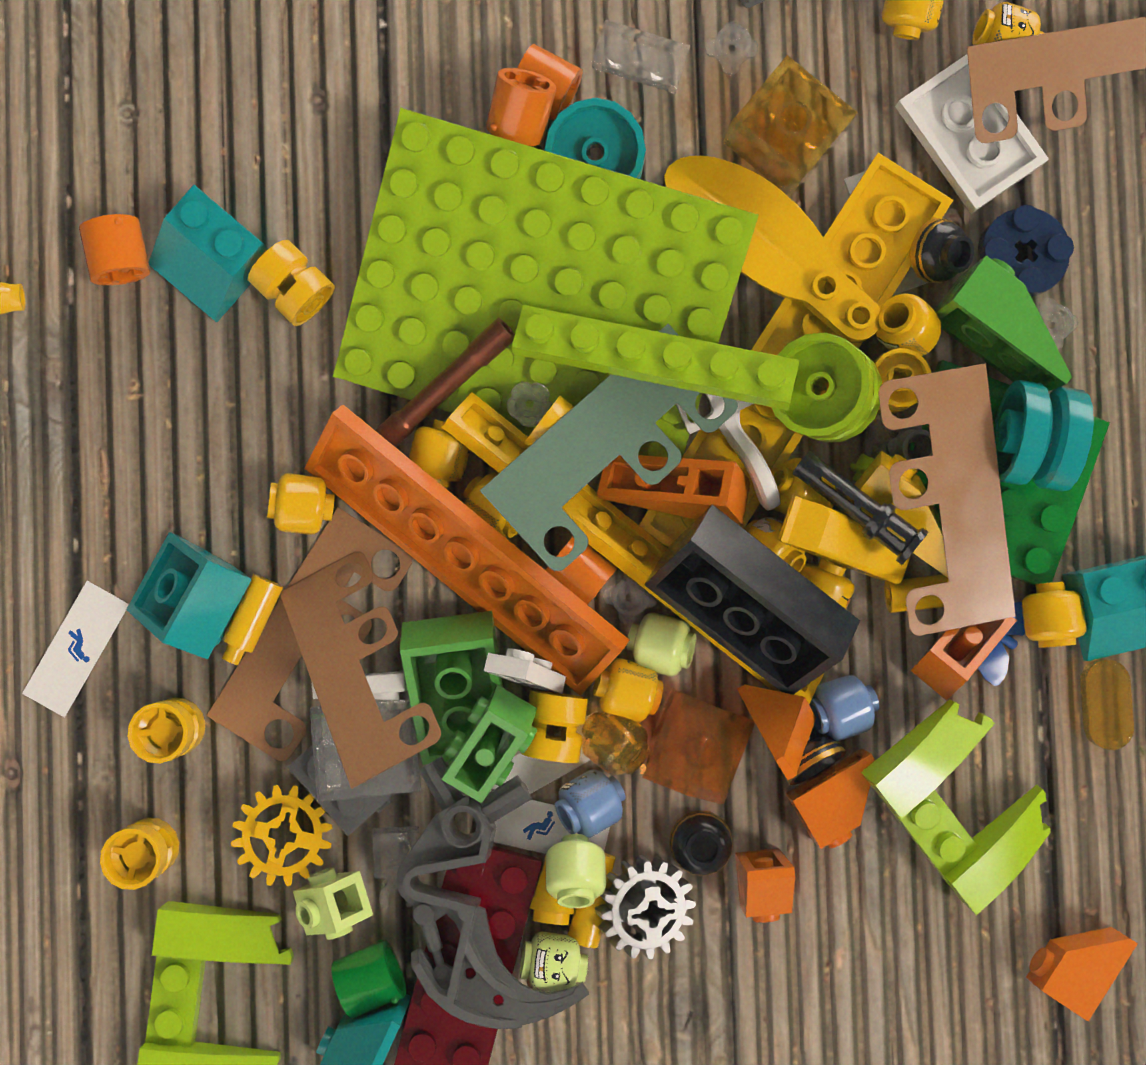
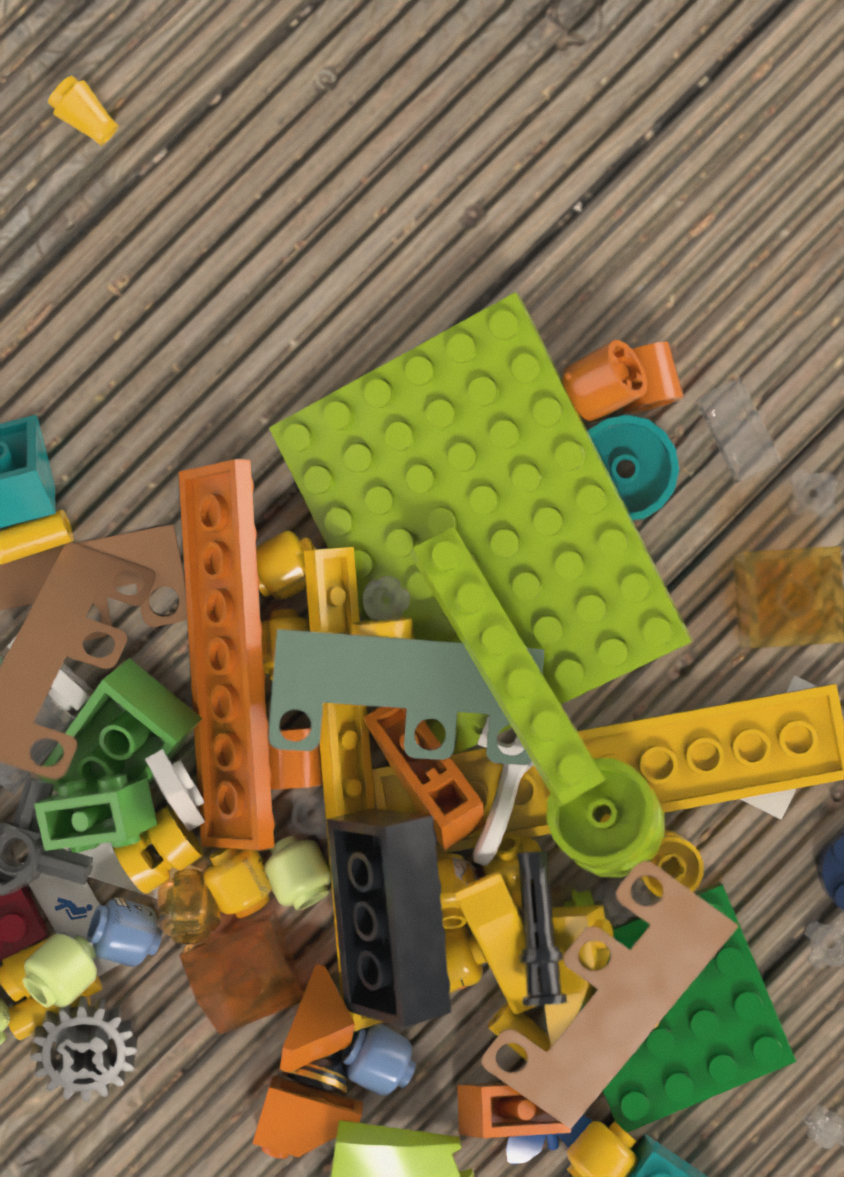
camera: 55 degrees right, 0 degrees up
(114, 249) = (209, 172): orange piece -> none
(205, 253) = (273, 244): teal slope -> none
(285, 276) = (313, 313): yellow wheel -> none
(300, 503) = (147, 495): yellow head -> none
(478, 354) = (385, 526): copper piece -> none
(701, 843) = (175, 1045): black piece -> none
(765, 884) = (186, 1124): orange slope -> none
(785, 248) = (692, 684): yellow plant -> none
(901, 443) = (619, 916): dark grey plate -> none
(908, 324) = (721, 833): yellow head -> none
(941, 251) = (805, 805): black piece -> none
(1001, 324) = (789, 902): bright green slope -> none
(1043, 435) = (727, 1020): teal wheel -> none

